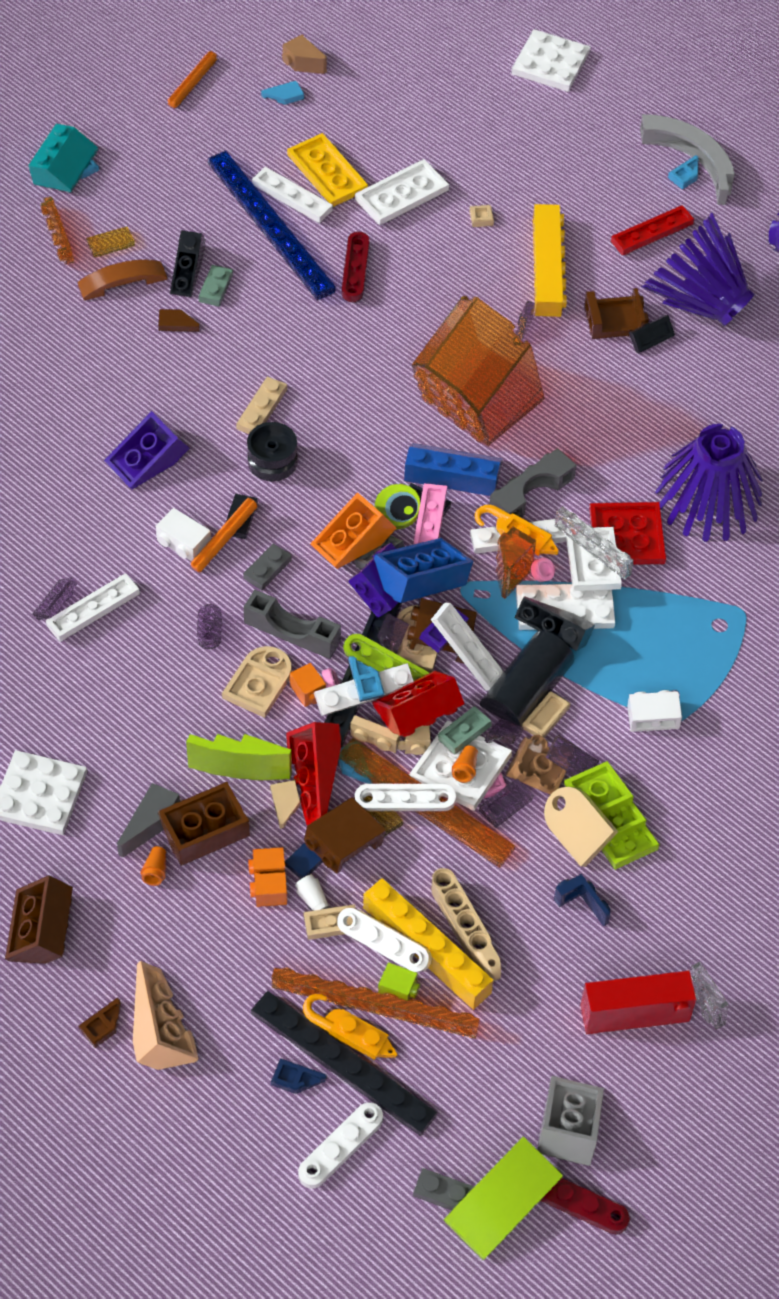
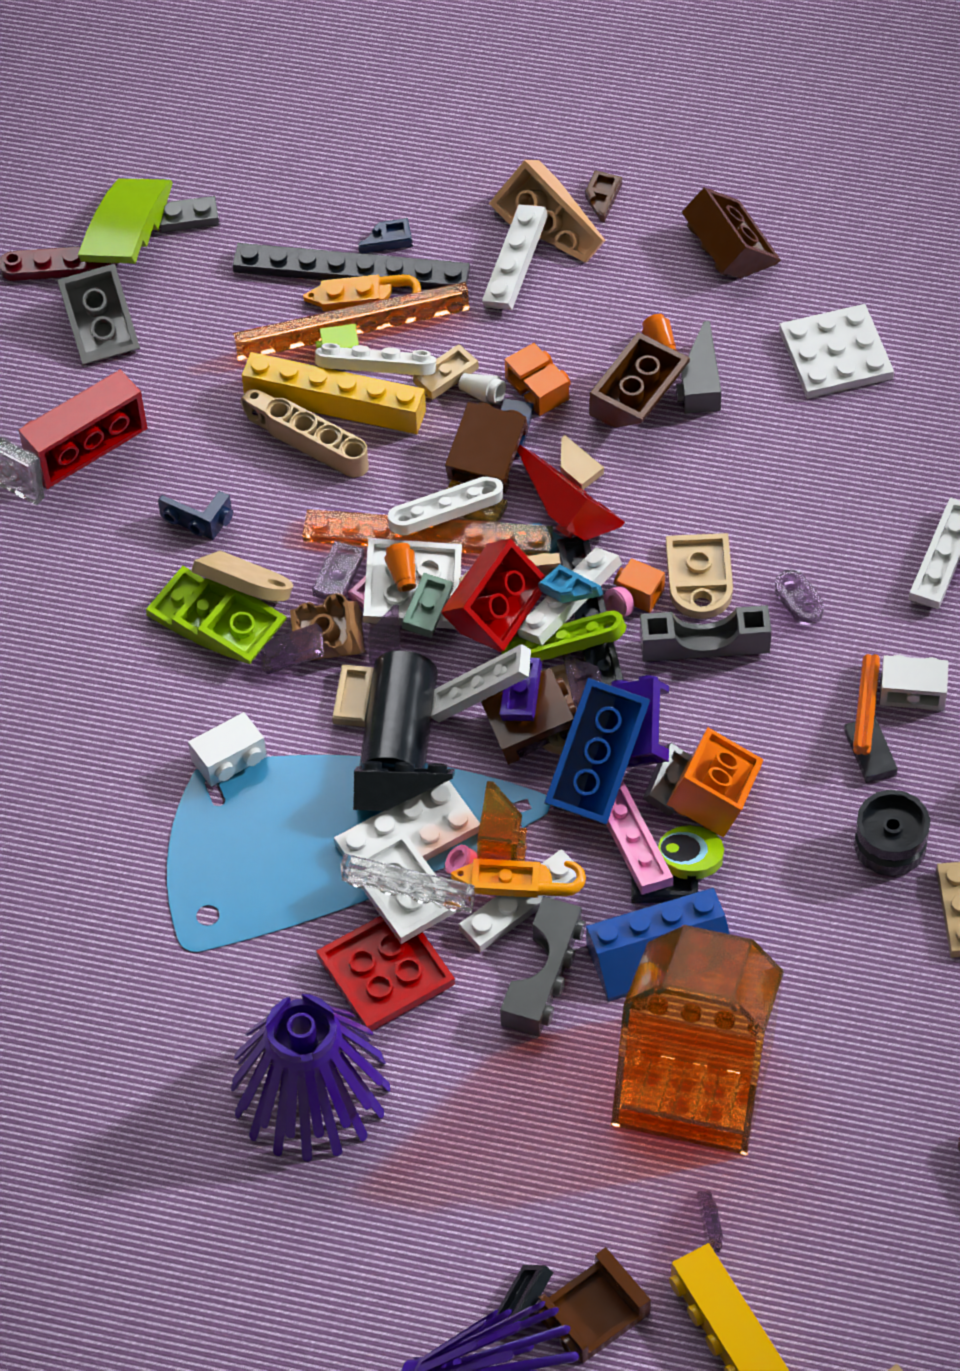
camera: 155 degrees right, 0 degrees up
(213, 990) = (515, 257): none -> white plate
(241, 760) = (650, 457): lime slope -> none
(267, 566) = (791, 705): dark grey plate -> none
(340, 1145) = (307, 204): white plate -> none

